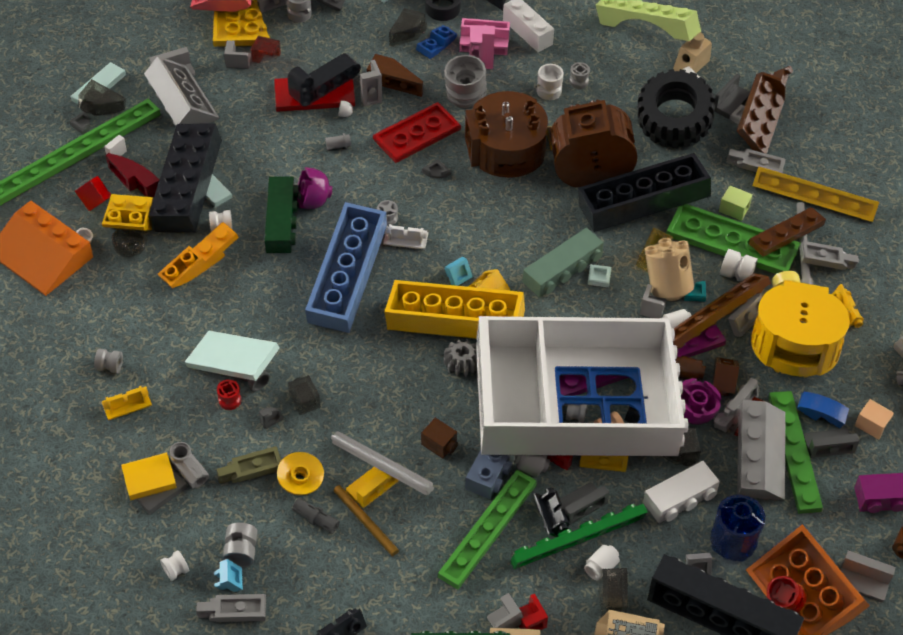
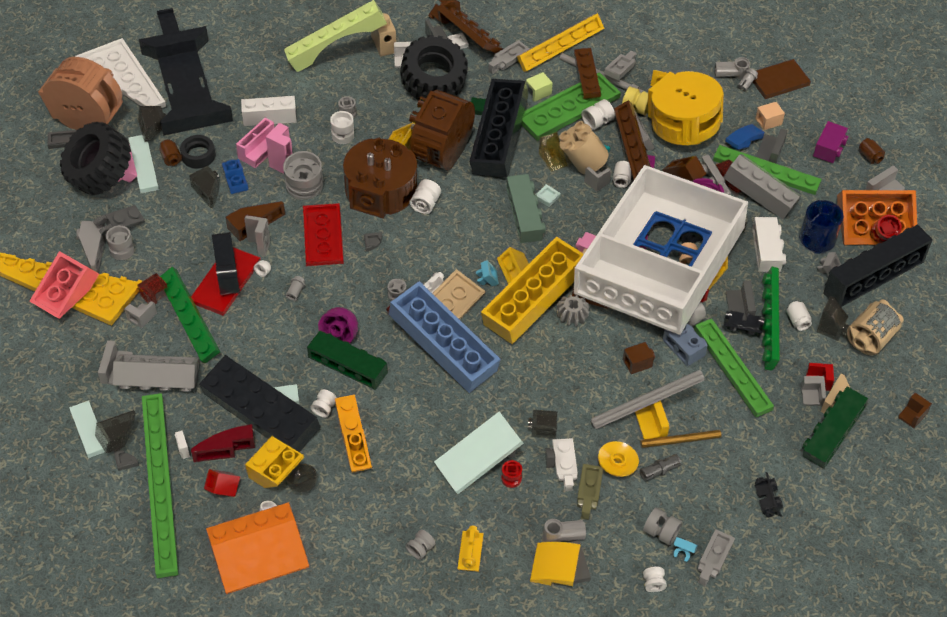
camera: 60 degrees left, 0 degrees up
(256, 86) = (189, 316): none -> green plate
(273, 433) = (565, 462): none -> white hinge
(408, 259) = (459, 293): none -> tan tile
(515, 180) = (425, 196): none -> white wheel

